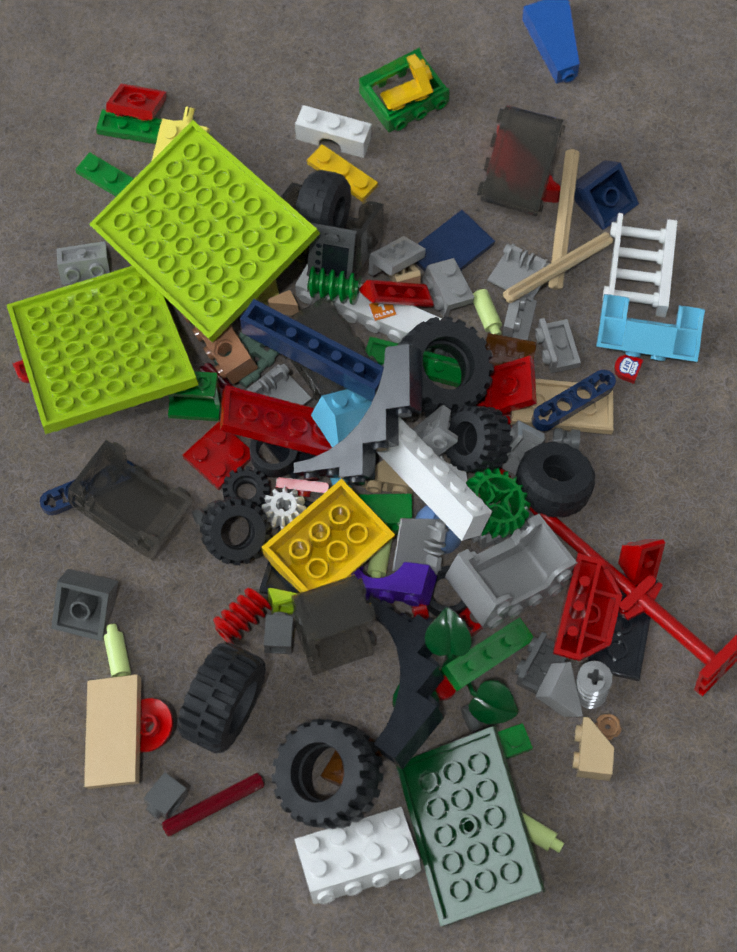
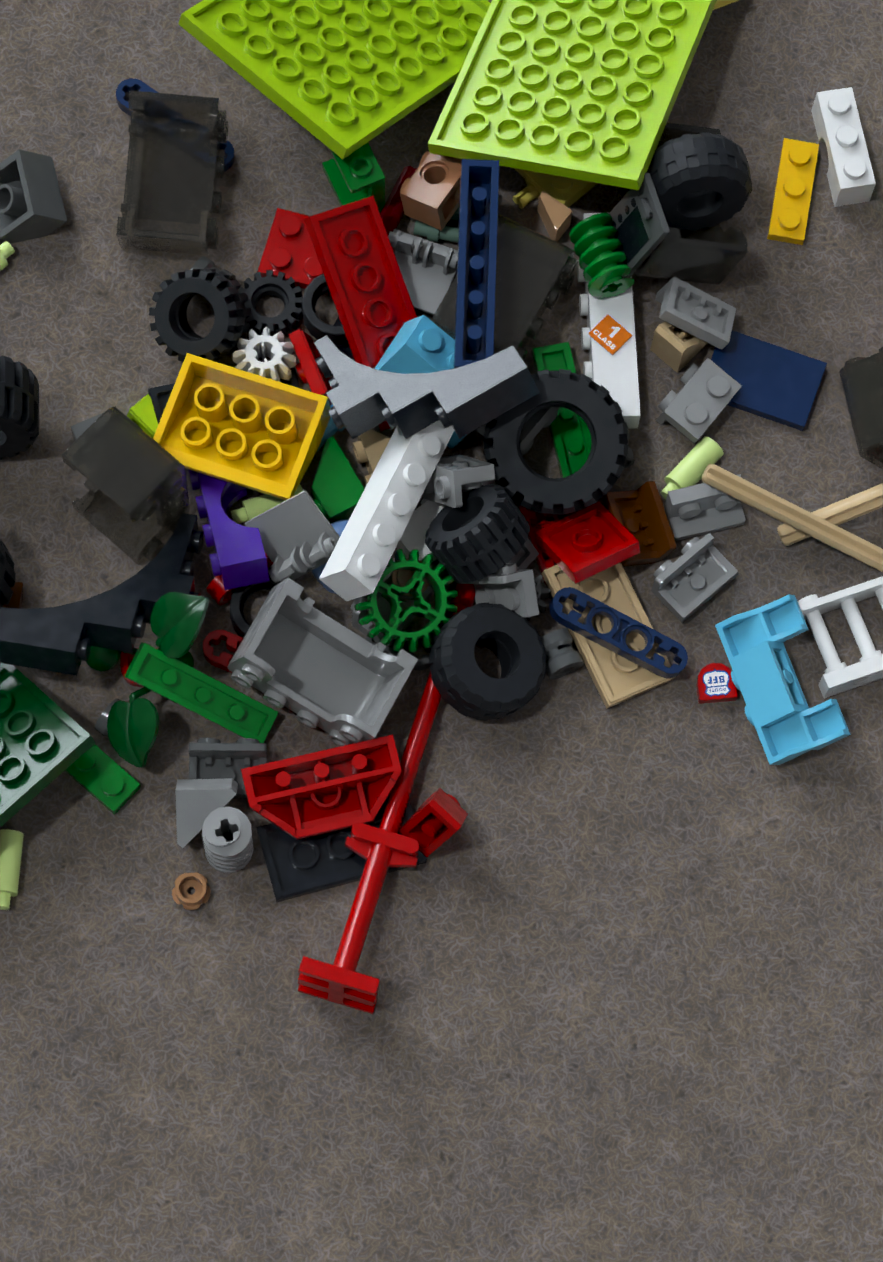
camera: 55 degrees right, 5 degrees up
(240, 615) = (97, 384): red piece -> none
(397, 293) = (640, 340): red slope -> none
(516, 267) = (779, 471): light grey hinge -> none
(594, 753) = (143, 888): tan slope -> none

